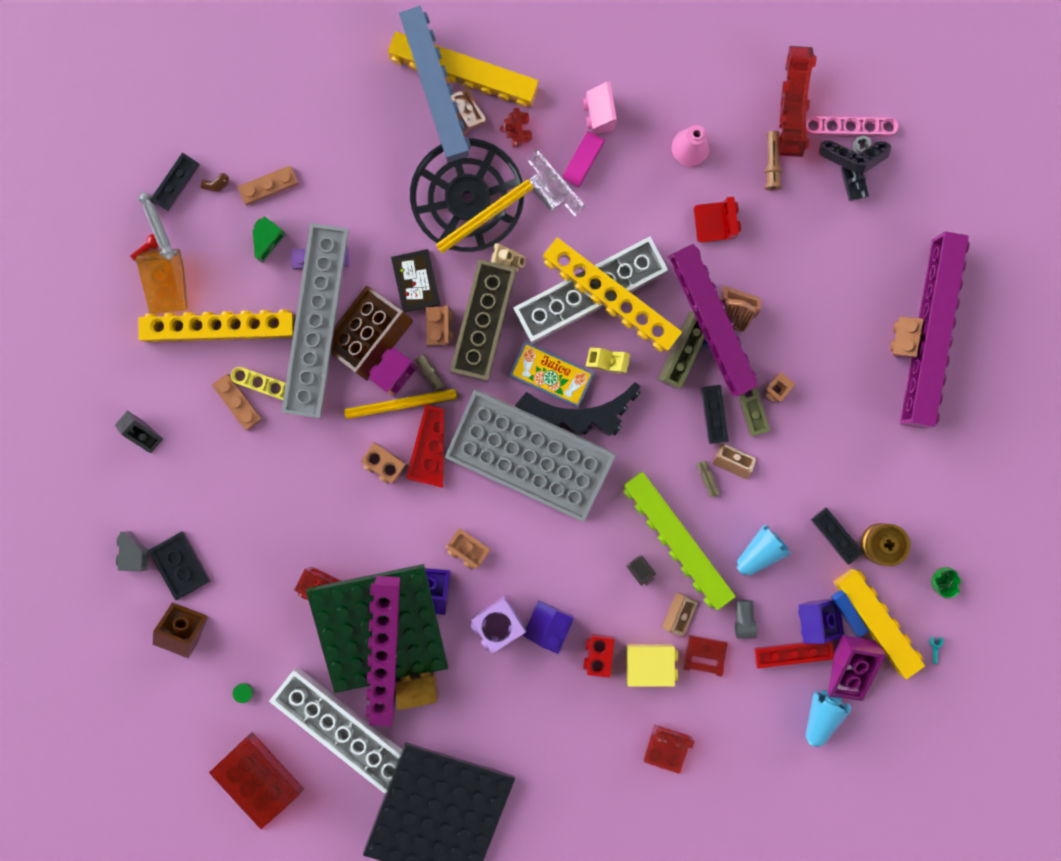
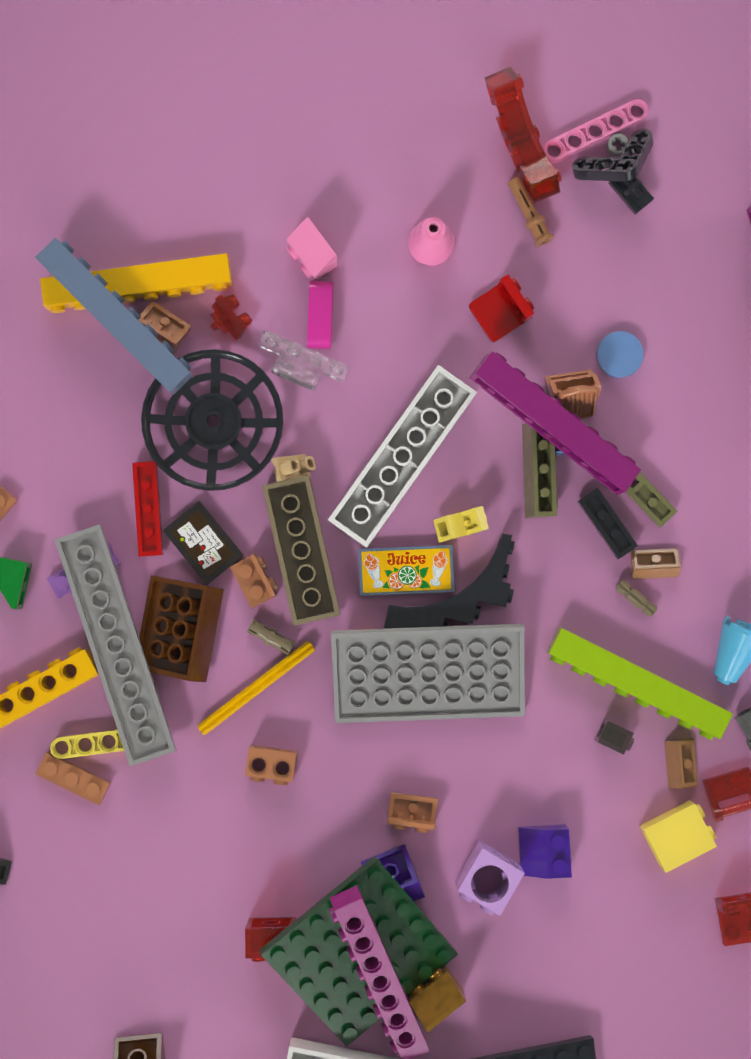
camera: 30 degrees left, 0 degrees up
(132, 553) = (42, 1007): dark grey slope -> none
(179, 565) = (101, 993): black tile -> none
(388, 236) = (147, 509): none -> red plate
(392, 371) = (230, 659): magenta brick -> none
(428, 452) = (314, 727): red wing -> none
(484, 216) = (244, 434): yellow axle -> none
(604, 655) = (621, 852): red brick -> none
(638, 308) = (515, 461): yellow brick -> none
(784, 385) = (668, 453): nougat brick -> none
(786, 297) = (619, 354): none -> medium blue tile

